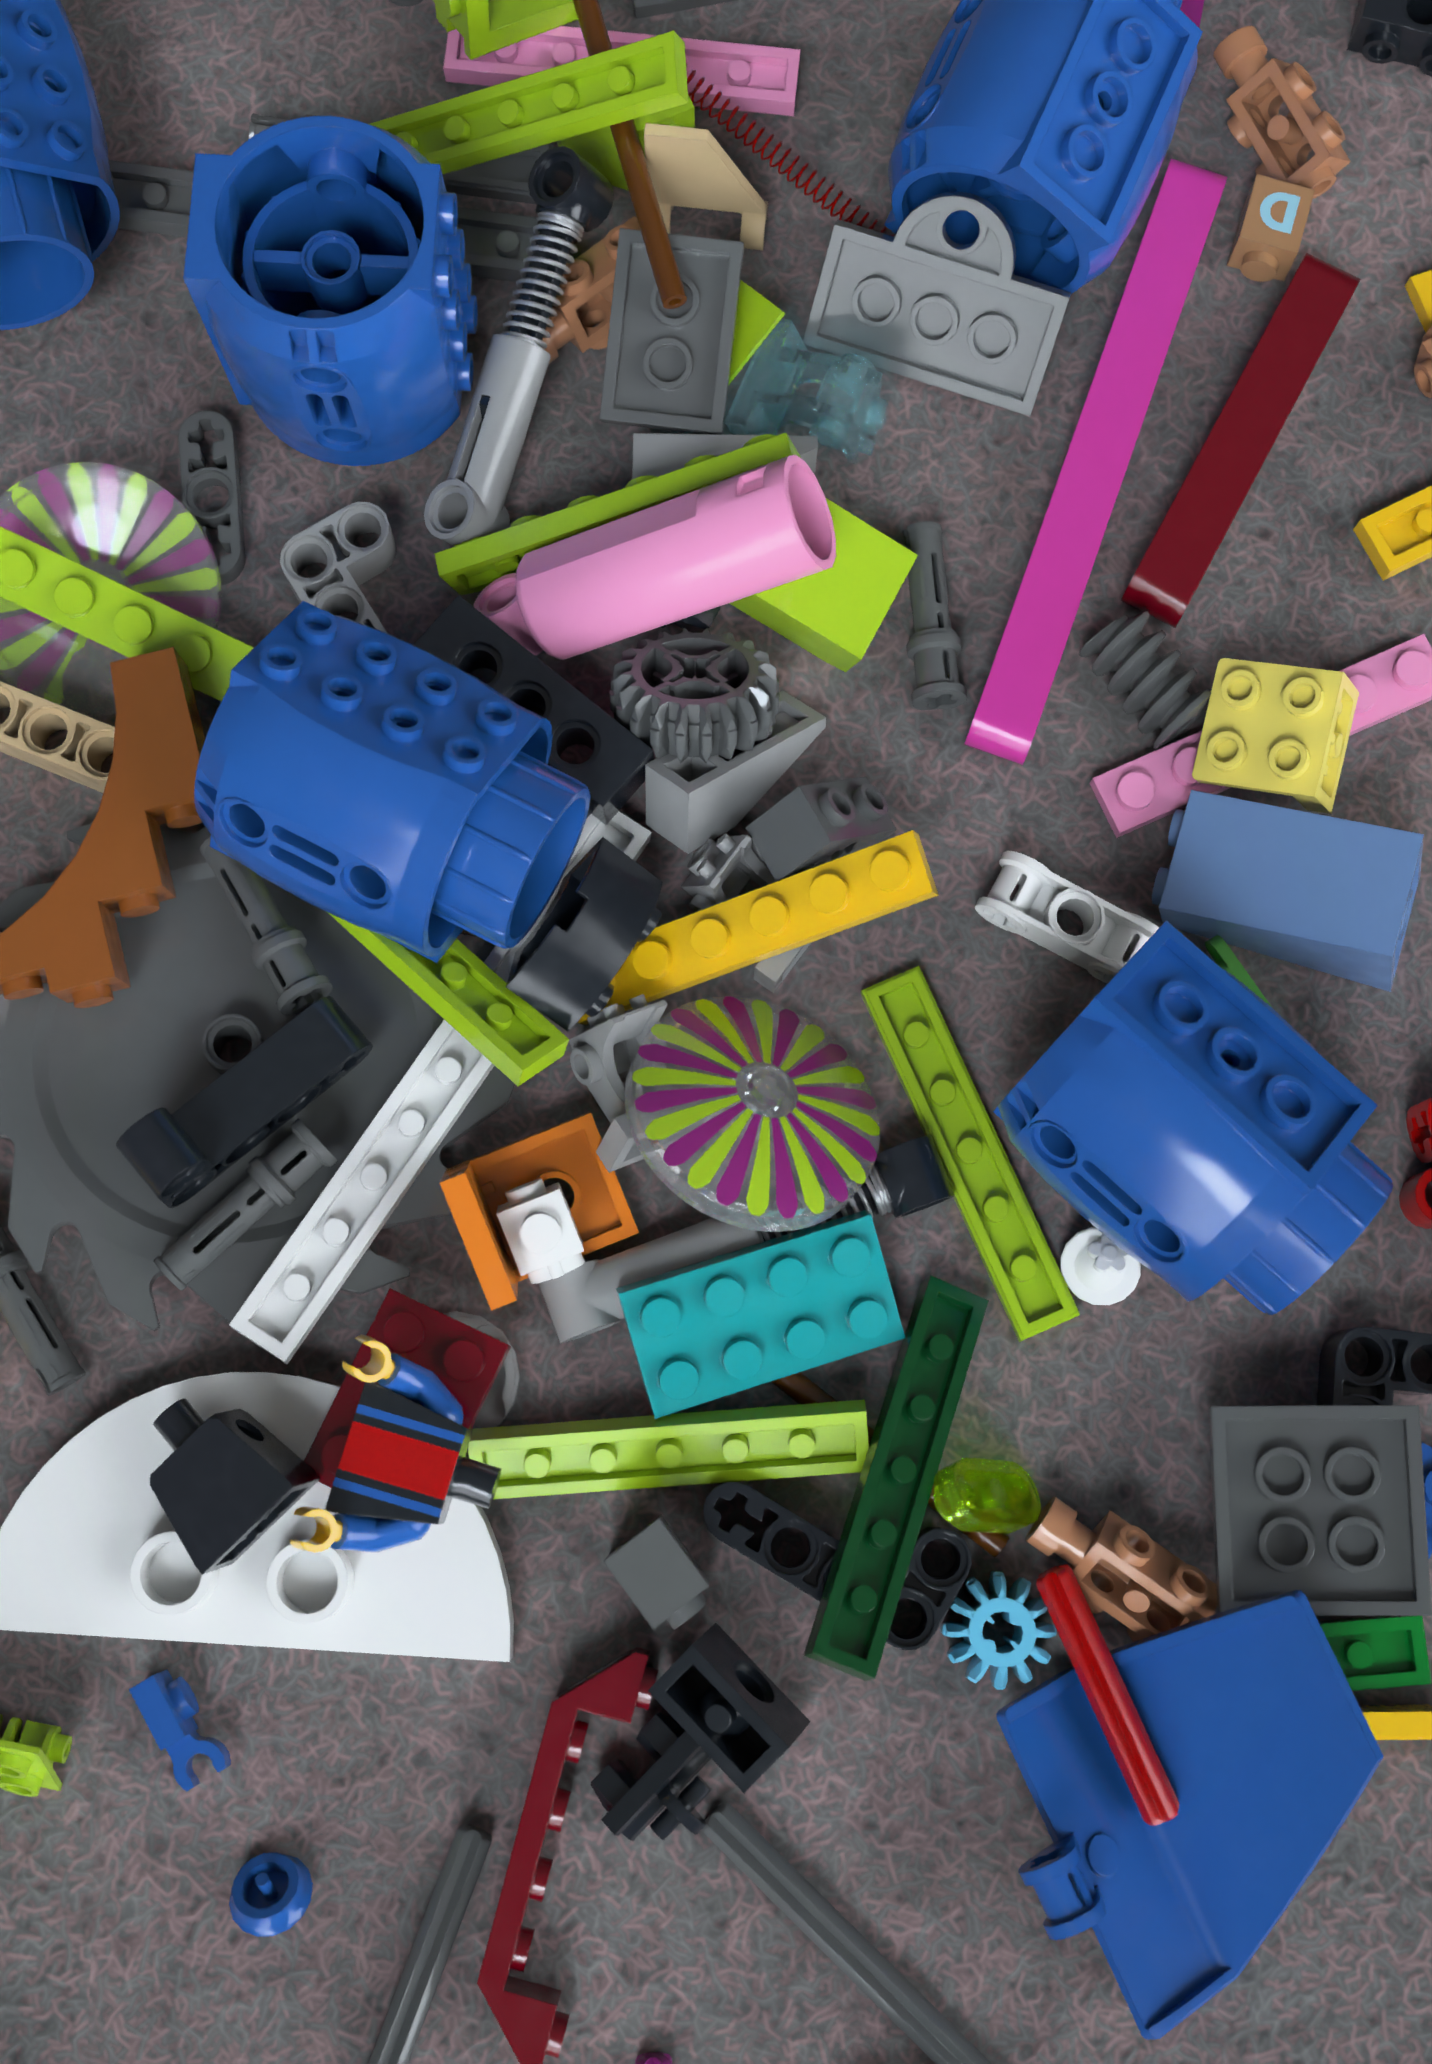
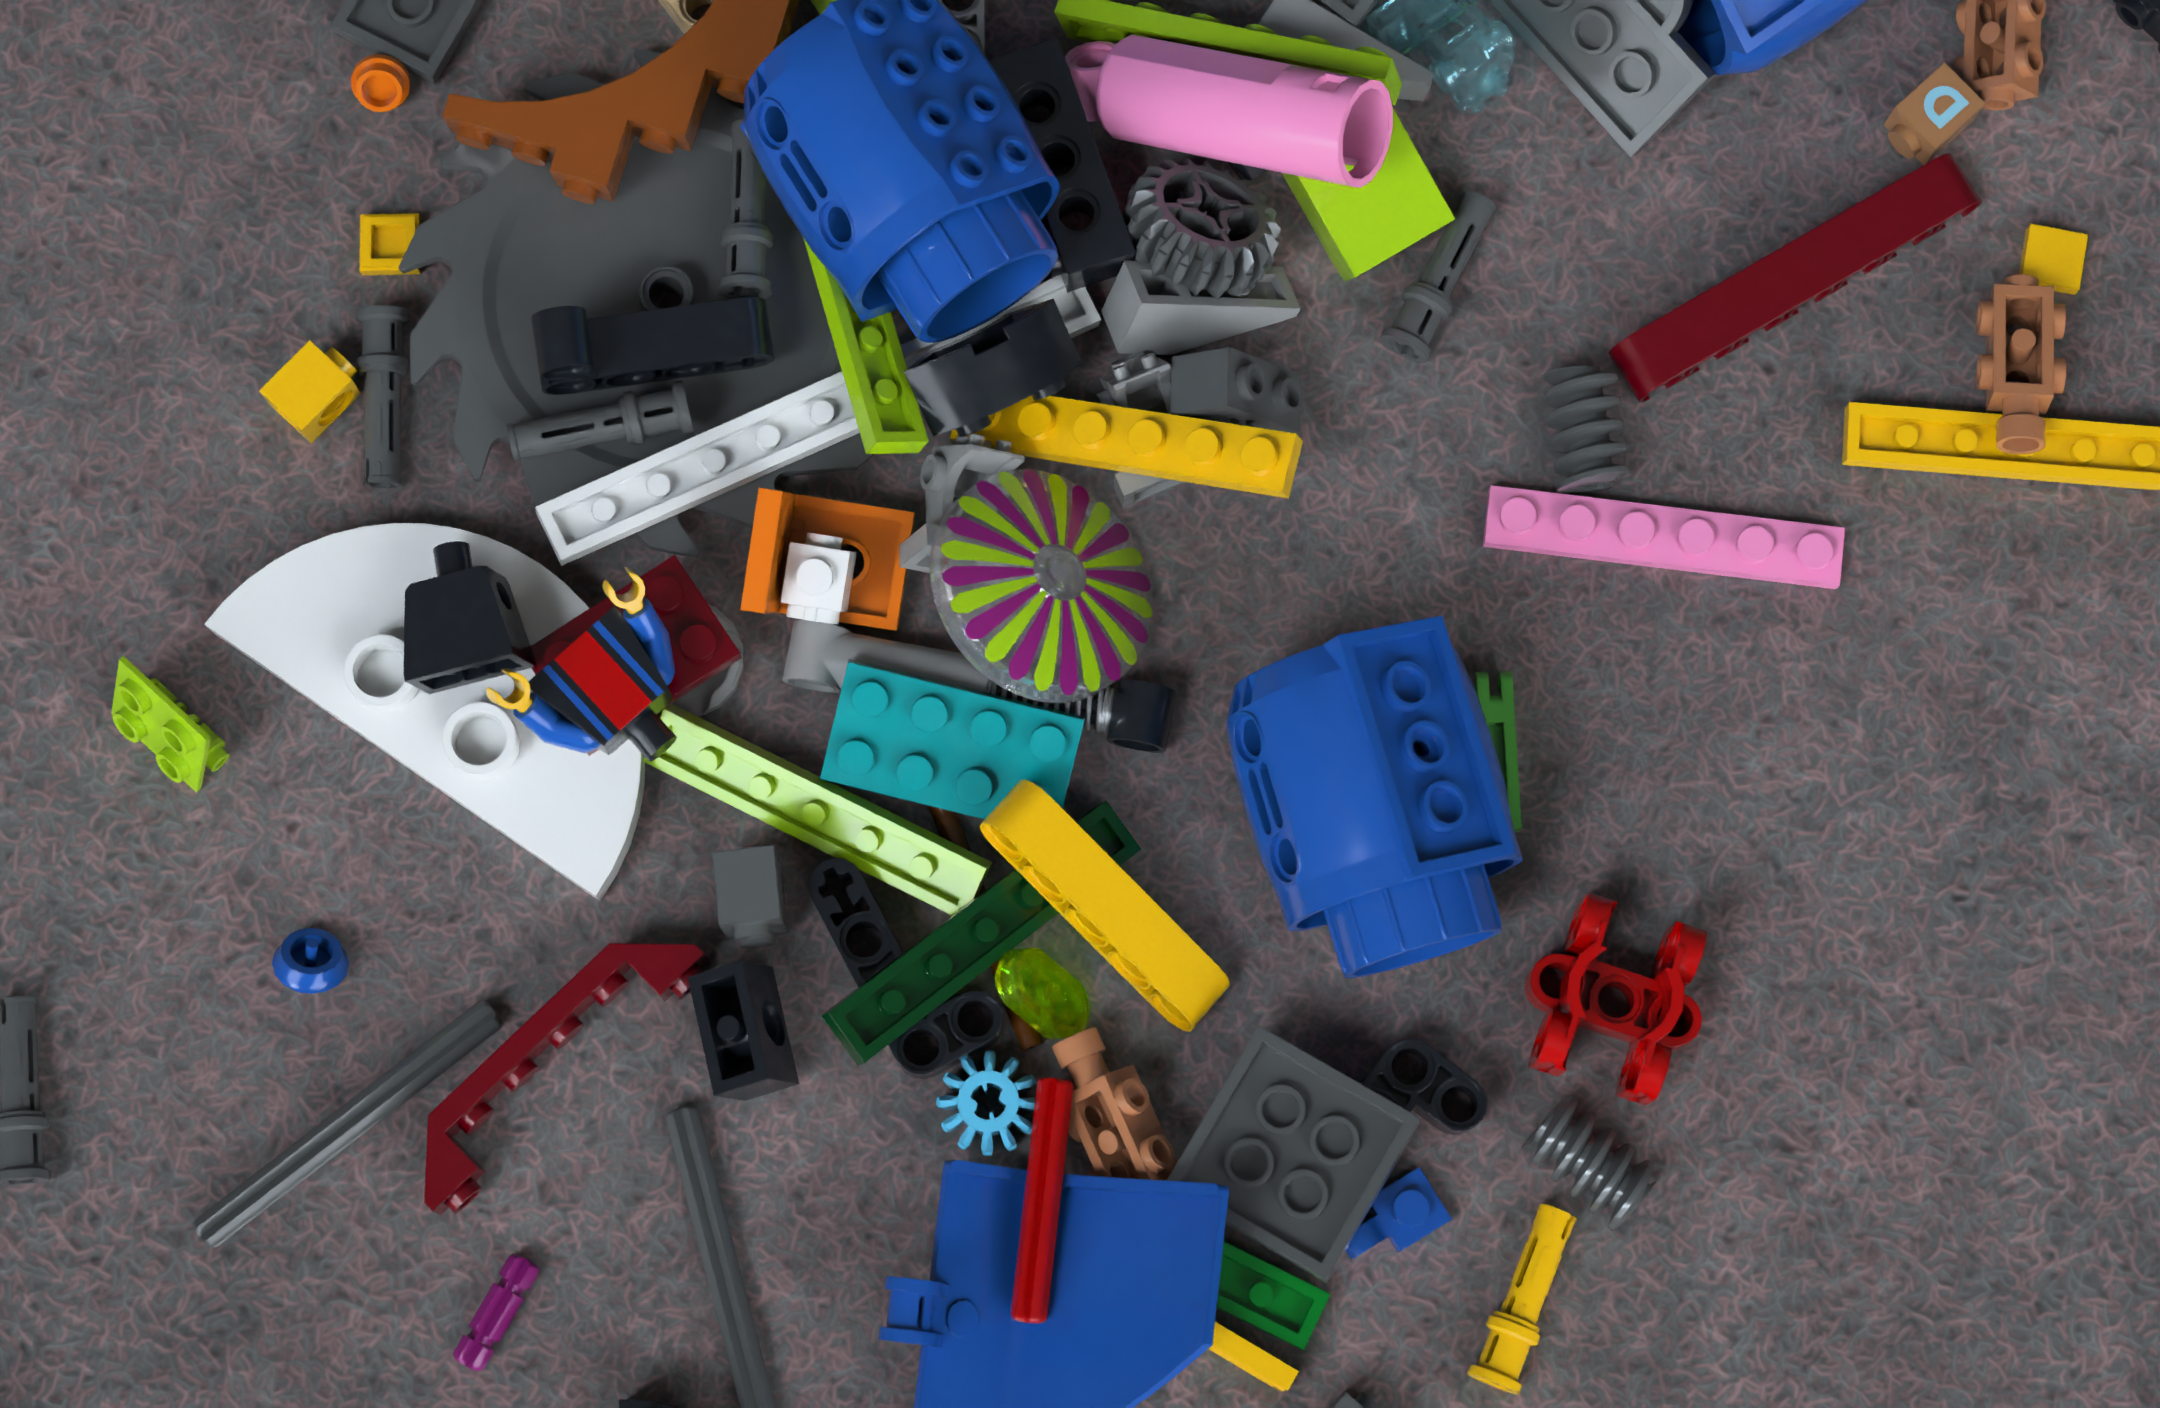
camera: 30 degrees right, 0 degrees up
(168, 1711) = (315, 778): blue plate -> none
(636, 1802) = (655, 1064): black hips -> none
(971, 1154) = (1198, 726): lime tile -> none
(994, 1377) = (1105, 905): none -> yellow beam
(1034, 916) = (1386, 557): white piece -> none
(1095, 463) = (1660, 222): dark pink beam -> none
(1098, 1268) = (1241, 877): white hat -> none
(1277, 730) = (1661, 534): light yellow bracket -> none
(1292, 885) = (1597, 668): medium blue slope -> none

